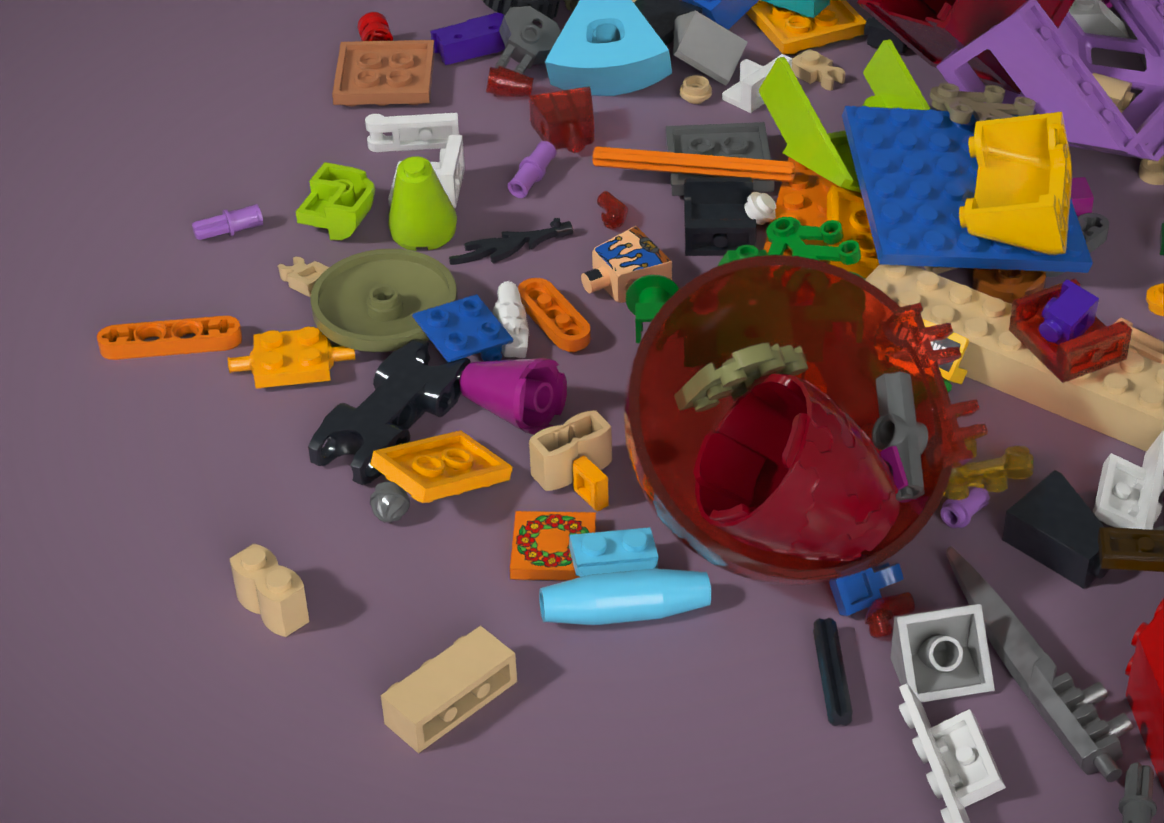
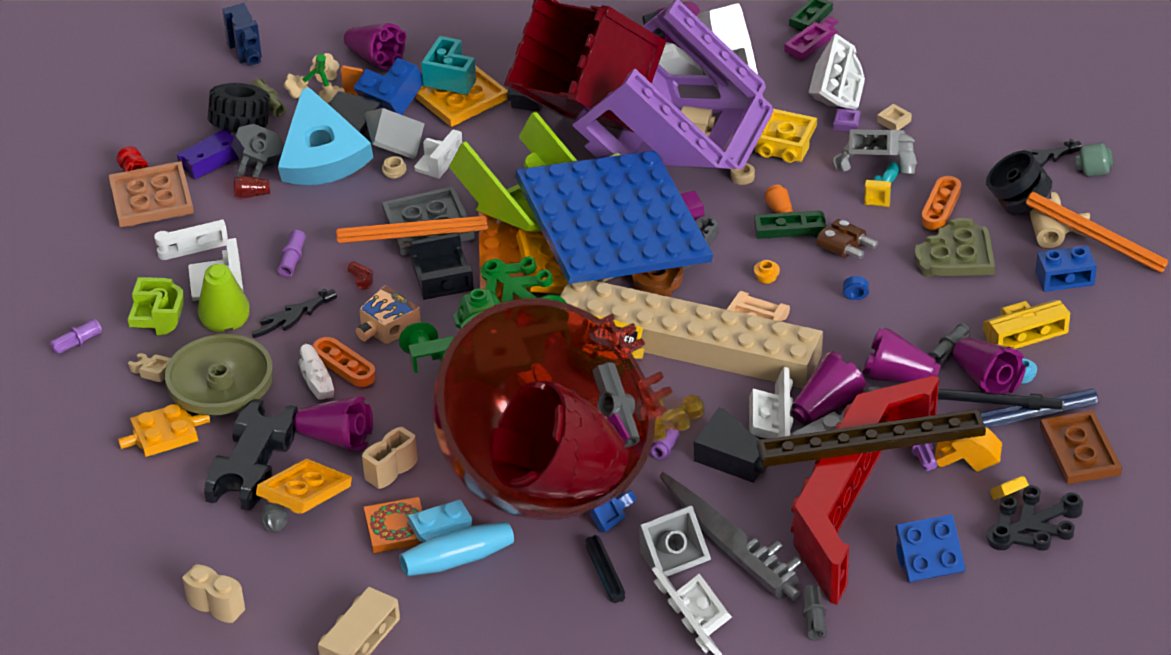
camera: 15 degrees left, 0 degrees up
(116, 340) = (67, 433): orange beam -> none
(464, 329) = (286, 385): blue hinge -> none
(564, 118) = (303, 208): clear red torso -> none
(590, 483) = (409, 477): light orange tile -> none
(738, 374) = (506, 387): olive plate -> none
(760, 207) = (469, 254): white plate -> none
(815, 67) = (477, 133): tan plate -> none
(884, 610) = (629, 522): clear red arm -> none
(964, 104) = (621, 156): dark tan plant -> none
(1021, 183) = (653, 207): yellow windscreen -> none
(1069, 314) = (706, 299): dark purple brick -> none
(1091, 351) = (707, 311): clear red panel -> none

